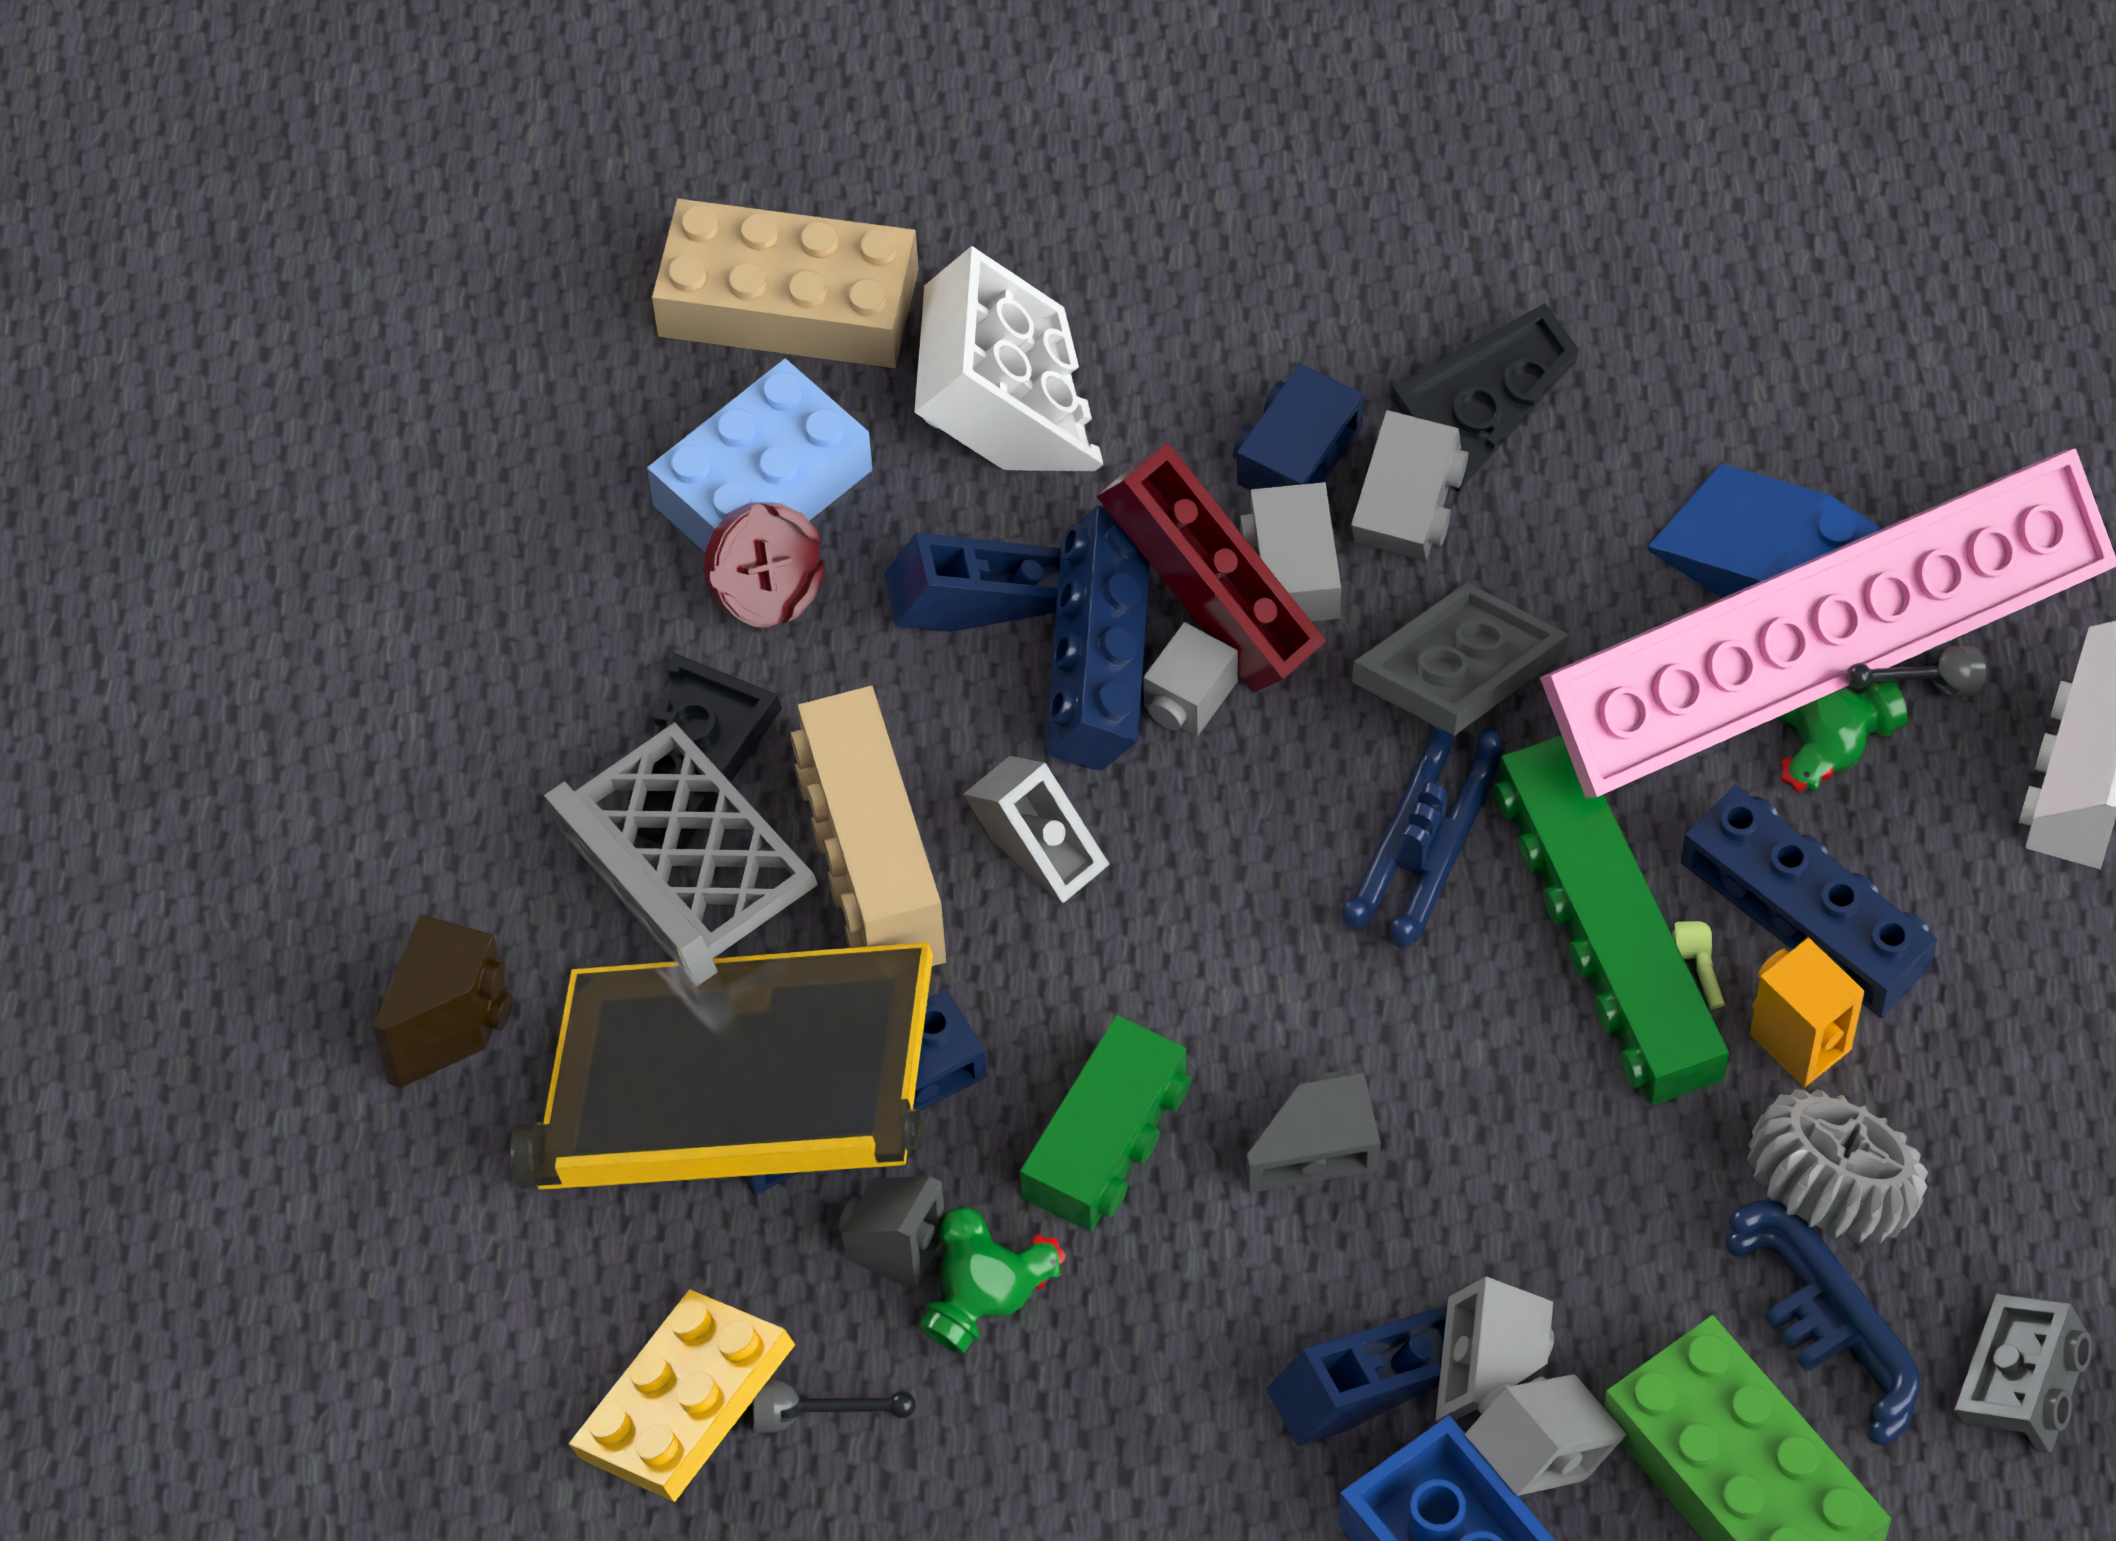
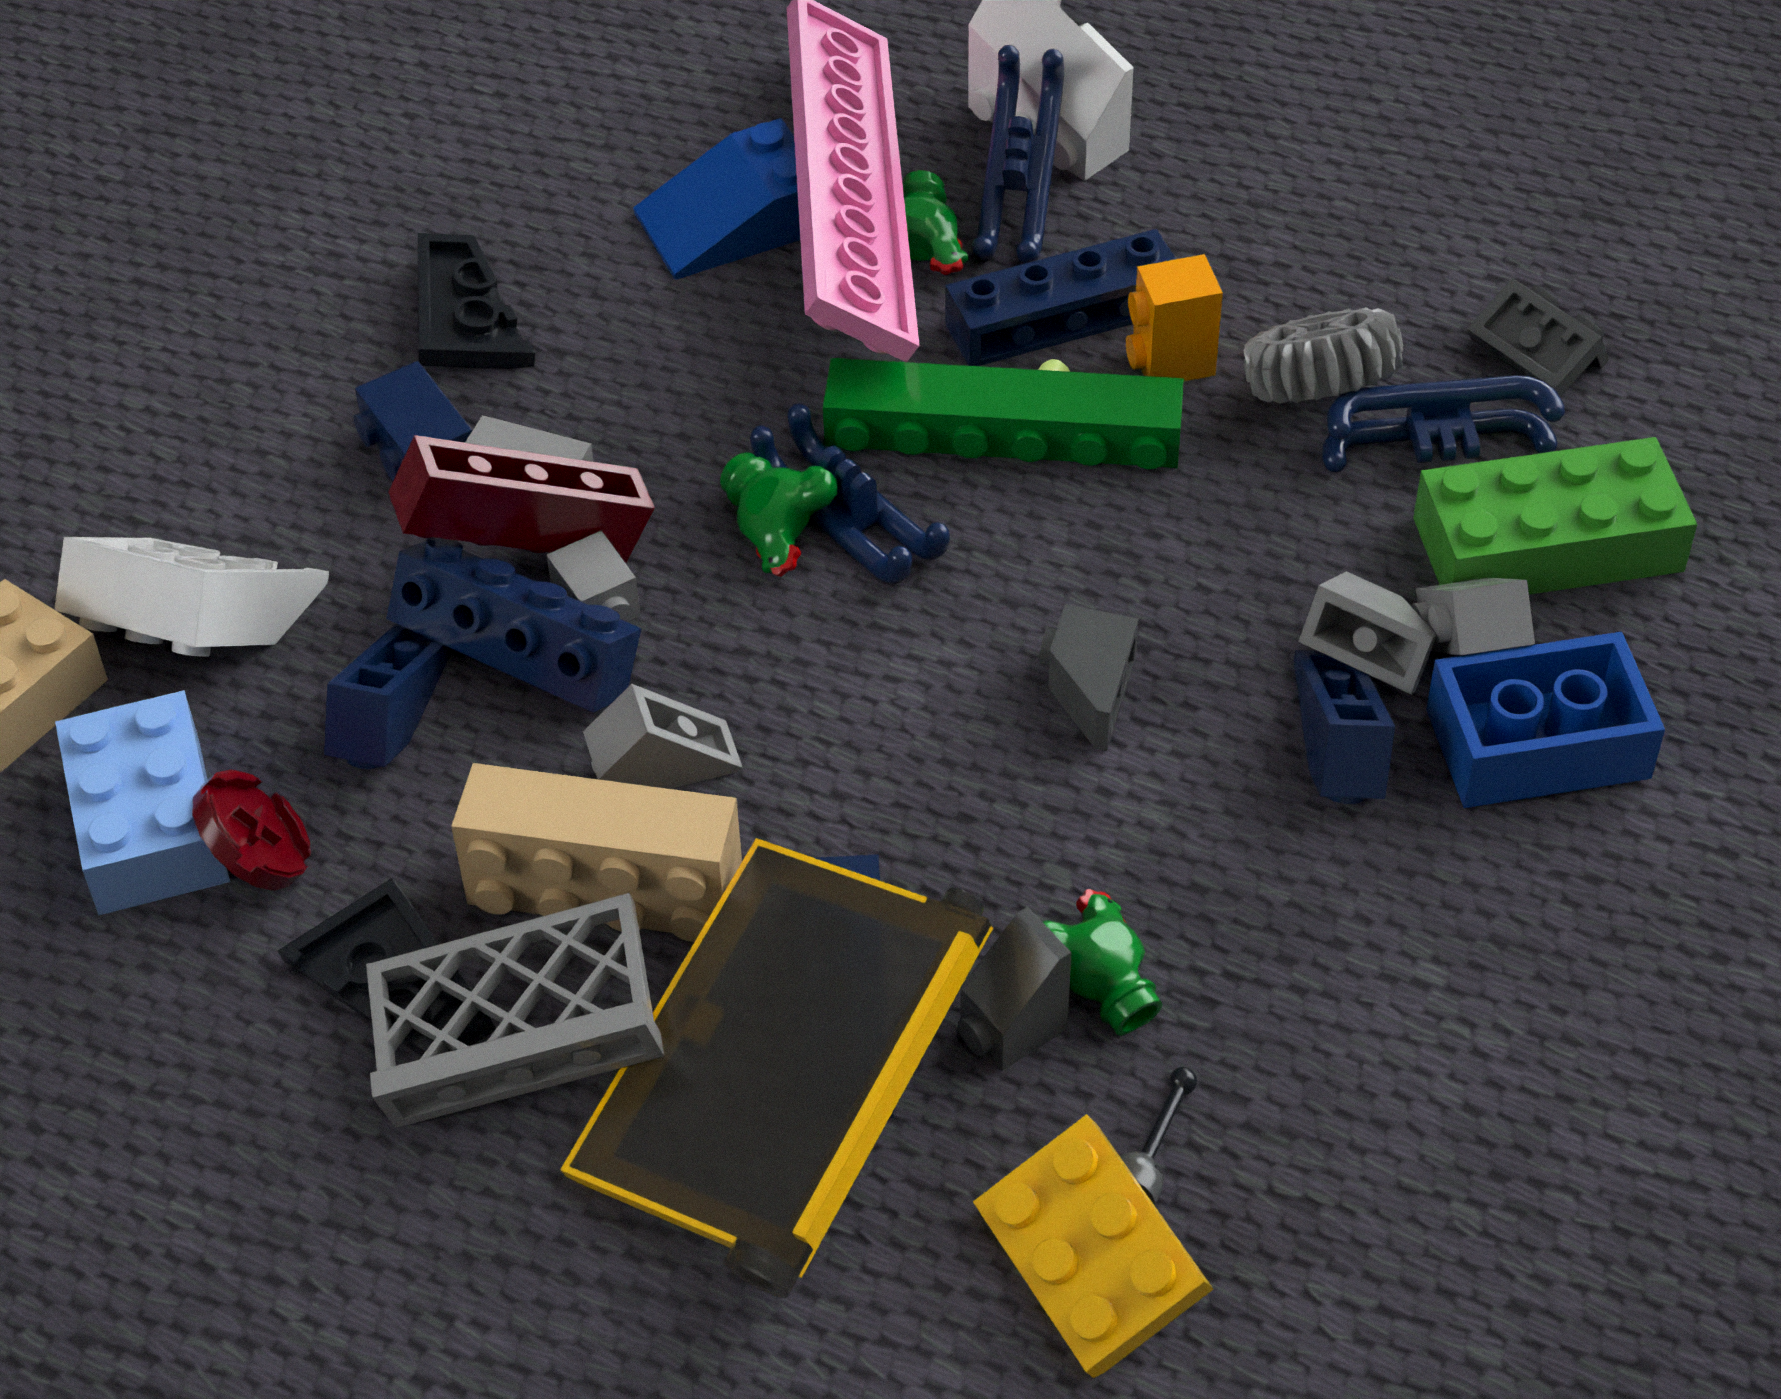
camera: 65 degrees left, 10 degrees down
(441, 1000) = (536, 1270): dark brown slope -> none
(1106, 1124) = (994, 811): green brick -> none
(1369, 776) = (775, 505): none -> green animal
(1408, 486) = (520, 371): light grey brick -> none
(1460, 658) = (713, 400): dark grey plate -> none
(1951, 671) = (919, 139): hinge -> none
(1960, 772) = (1019, 157): none -> dark blue piece

